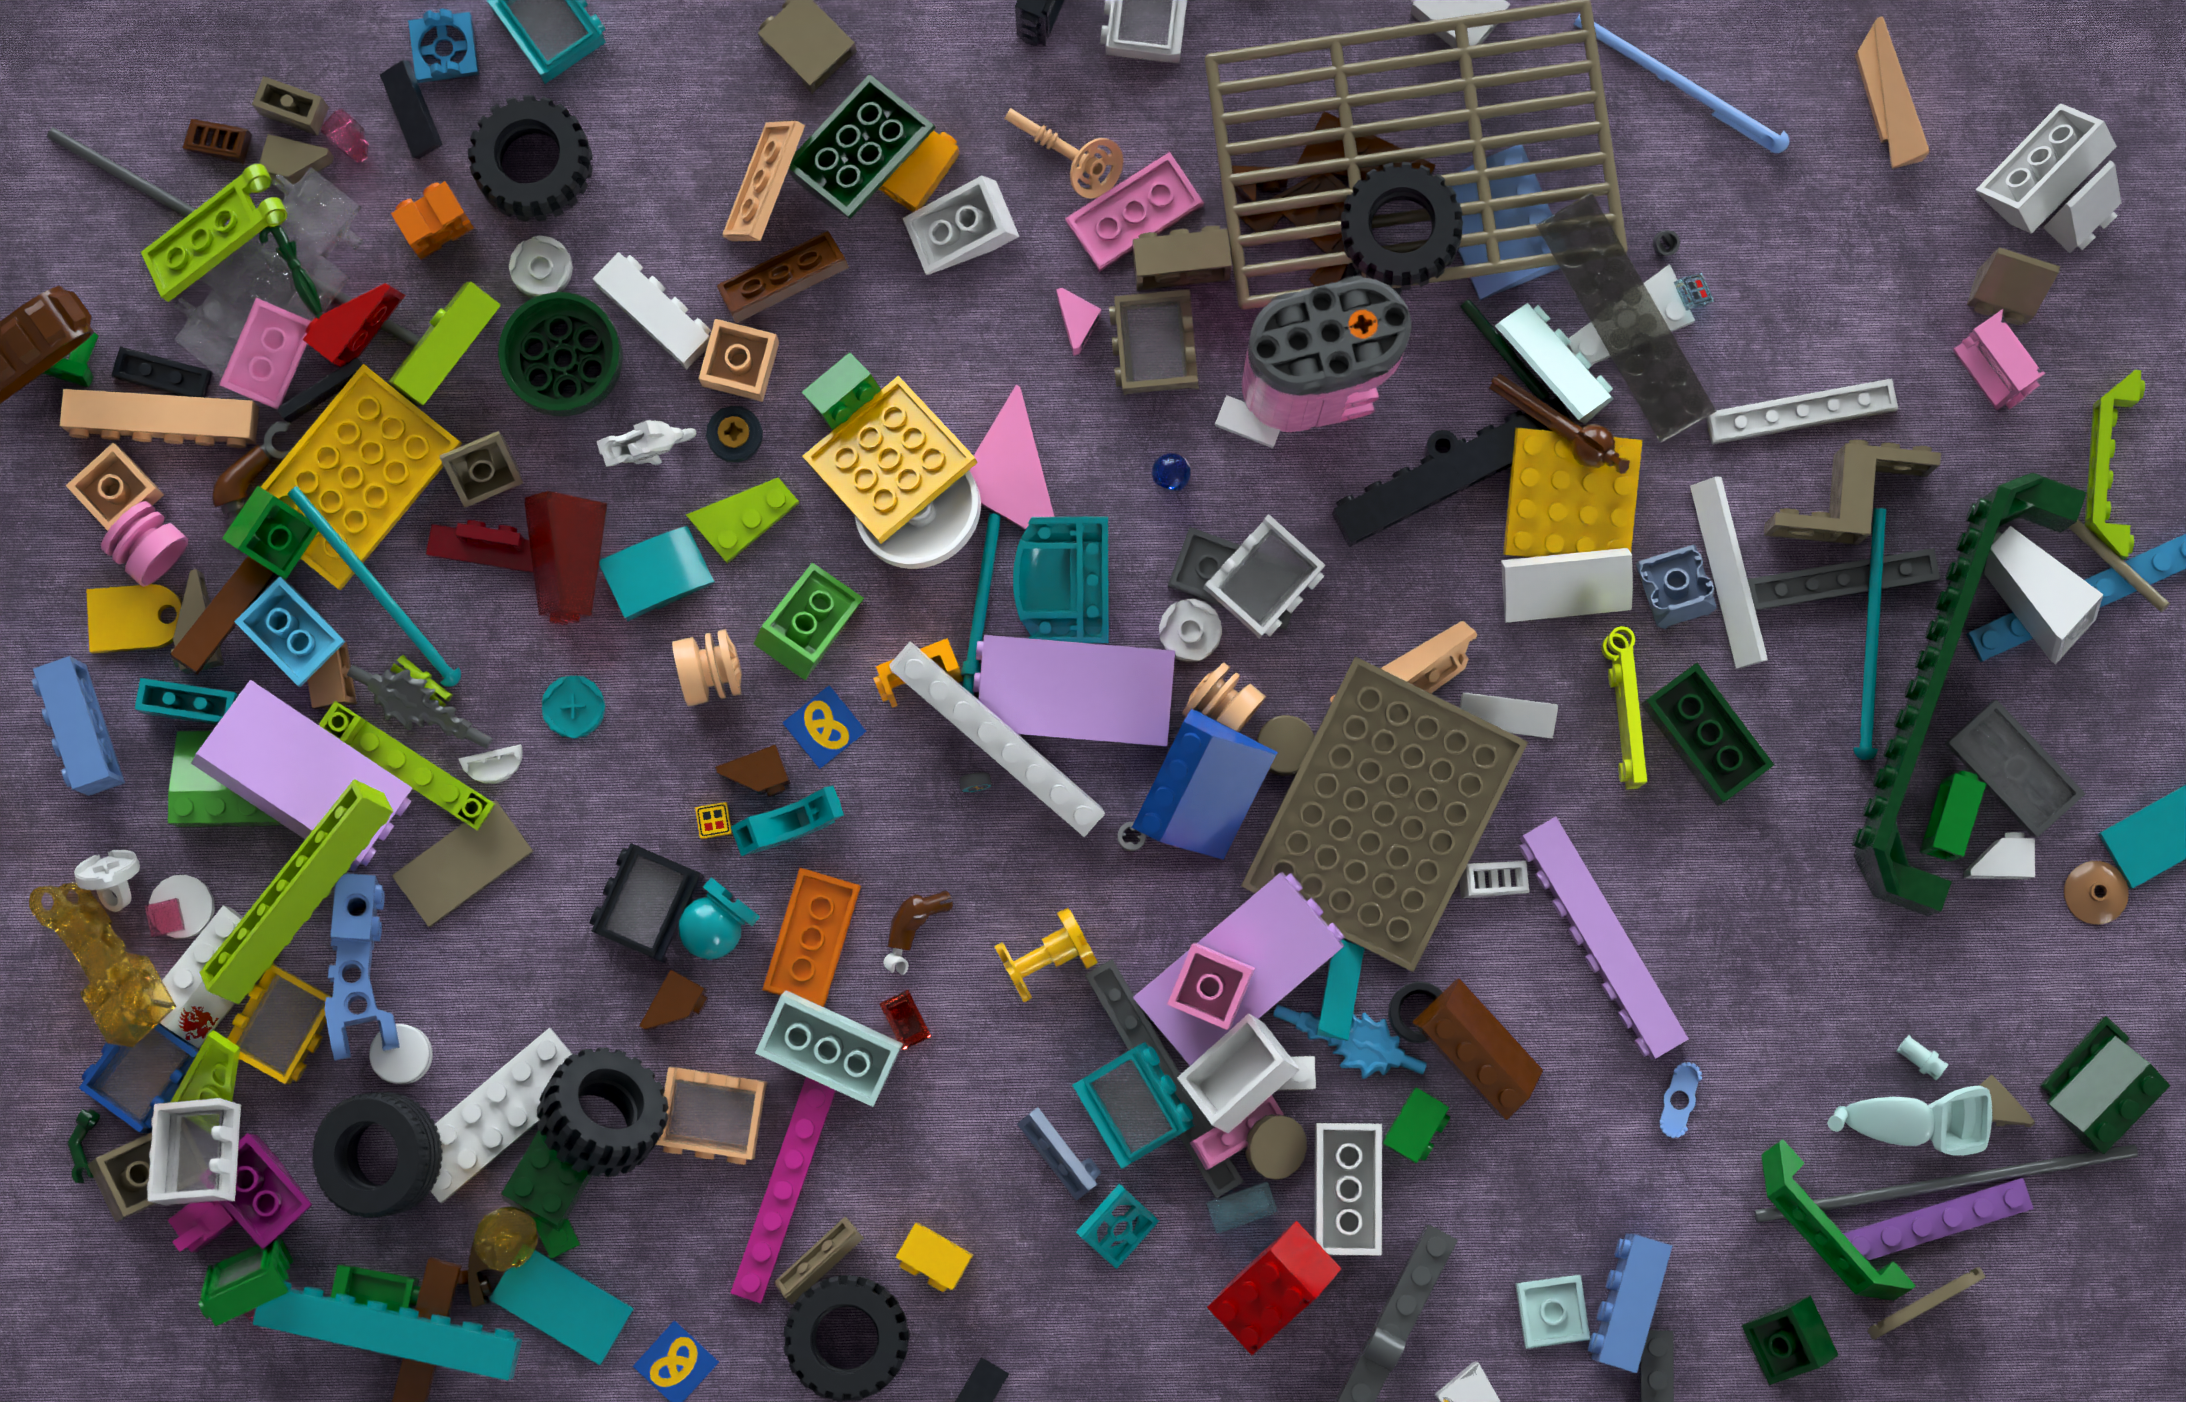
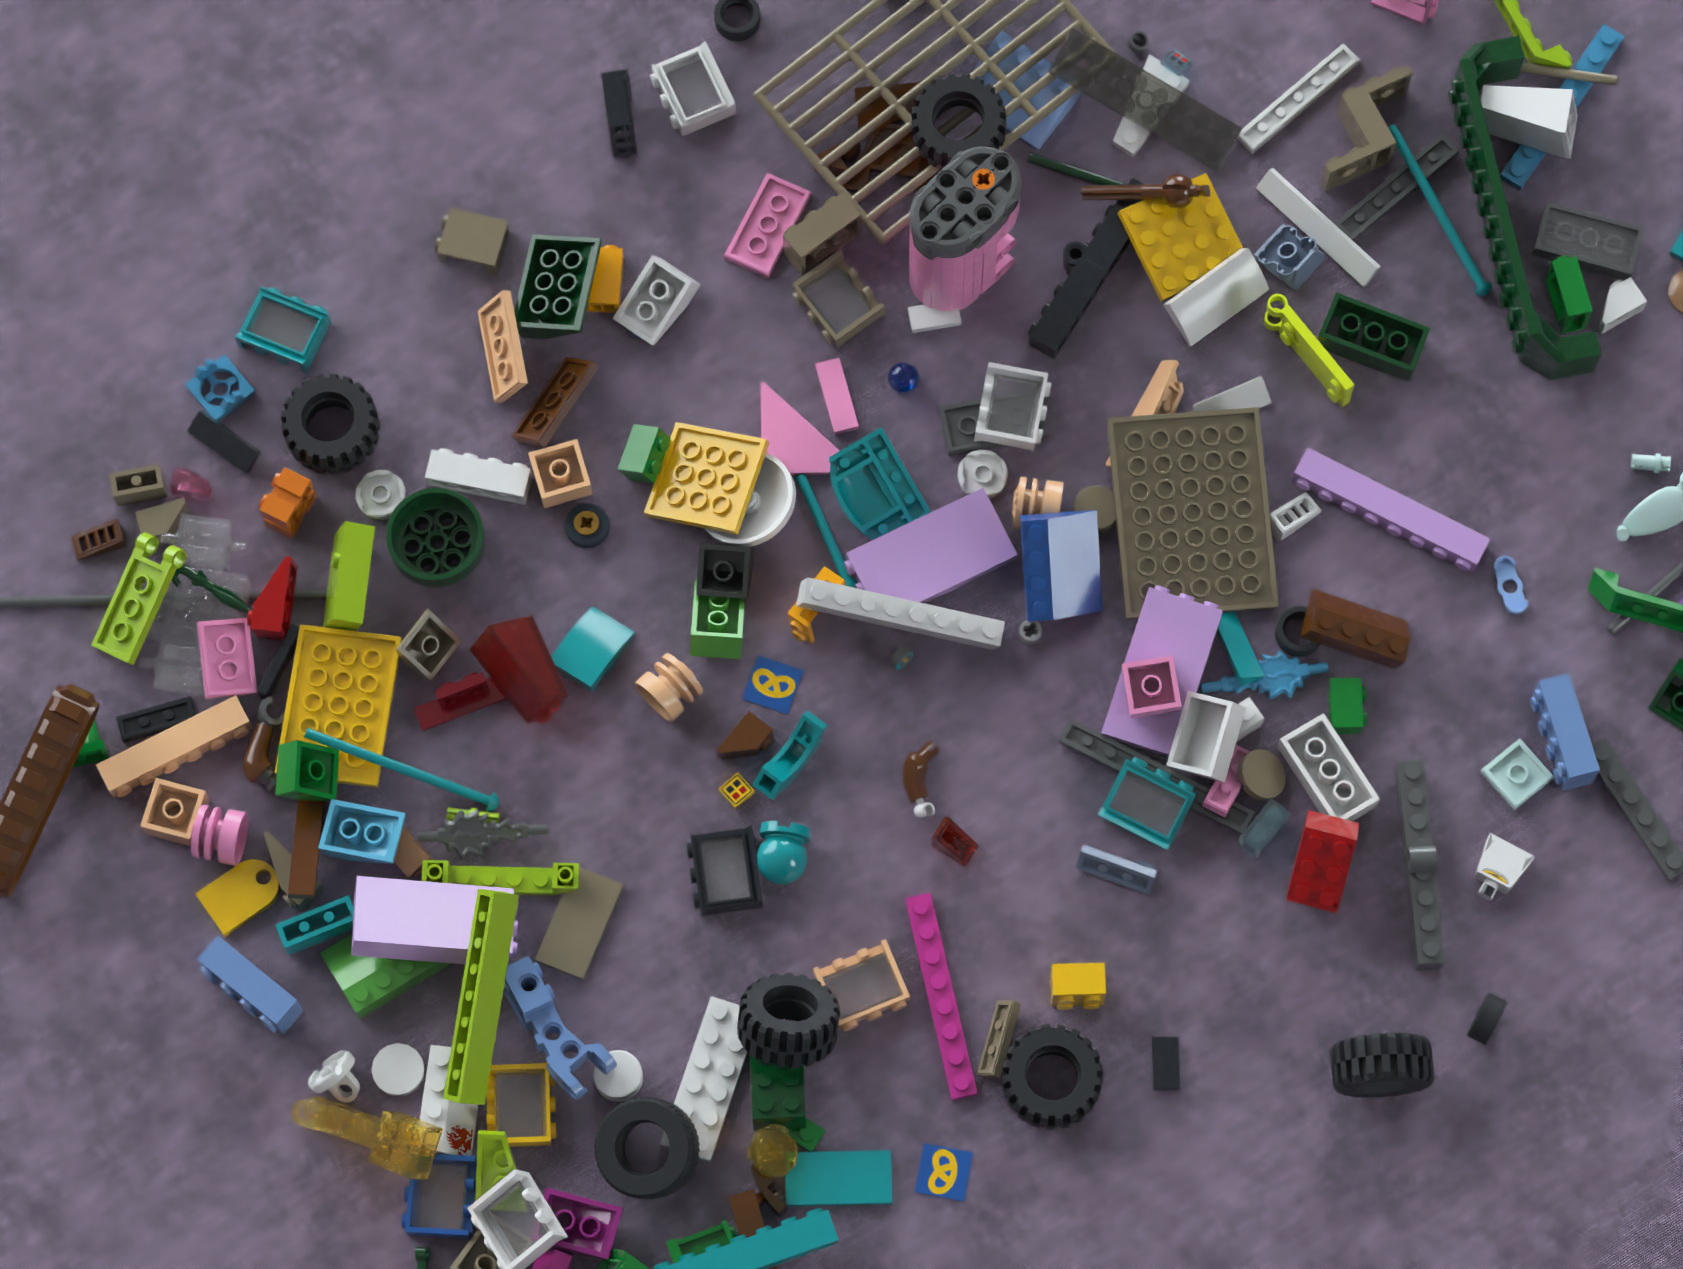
camera: 30 degrees left, 10 degrees down
(165, 917) = (392, 1081): clear pink tile -> none
(494, 765) = (558, 845): white tile -> none
(573, 706) = (589, 772): teal tile -> none
(643, 443) = (530, 563): white animal -> none
(674, 1002) = (788, 925): reddish brown slope -> none
(744, 517) = (628, 578): lime wing -> none
(812, 936) = (854, 829): orange tile -> none
(828, 1048) = (915, 889): light aqua slope -> none
(846, 573) = (724, 571): none -> pearl dark grey slope
(1057, 948) = (1029, 731): yellow piece -> none
(1079, 318) = (774, 314): bright pink slope -> none
(1087, 162) = (715, 211): light nougat dish -> none
(1088, 448) = (836, 396): none -> bright pink tile
(1145, 1223) = (1202, 891): teal piece -> none
(1555, 362) = (1115, 157): light aqua slope -> none

